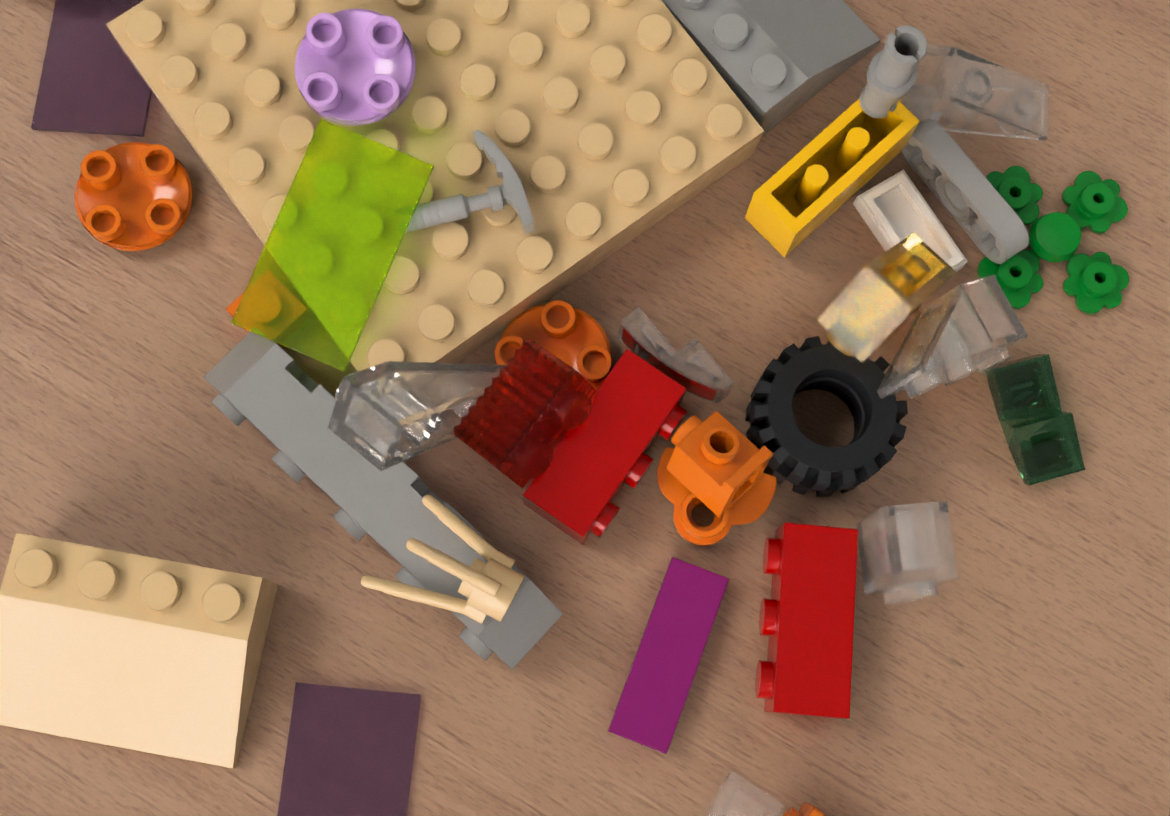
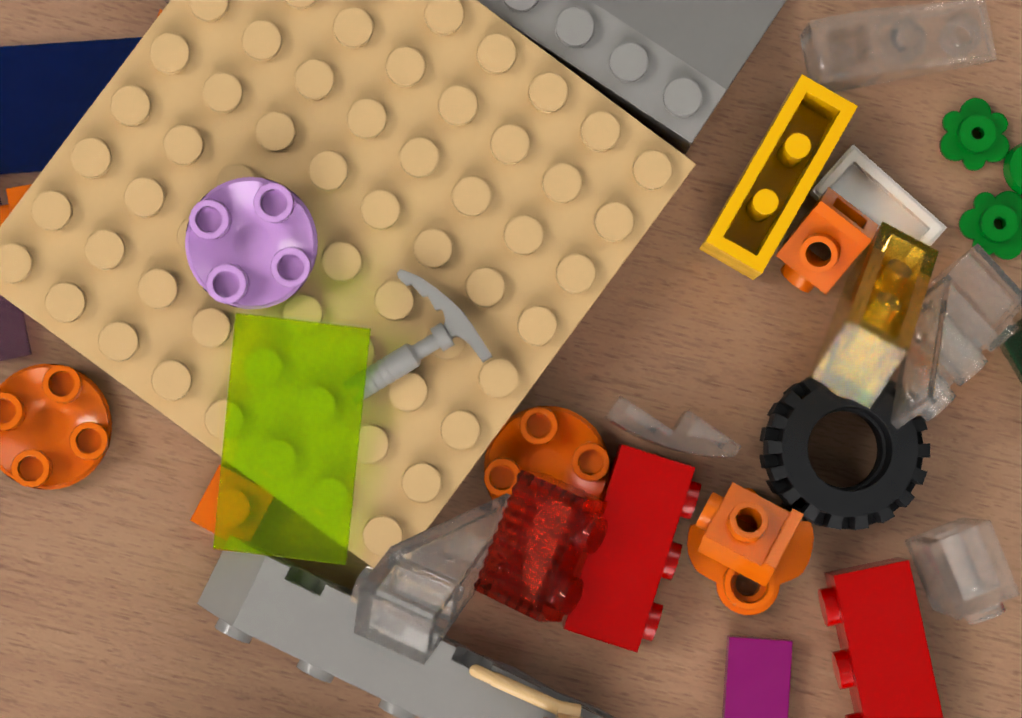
camera: 15 degrees left, 10 degrees up
(877, 231) = (834, 224): none -> orange brick
(893, 71) = (817, 84): light grey pin -> none
(965, 192) = (925, 154): light grey beam -> none

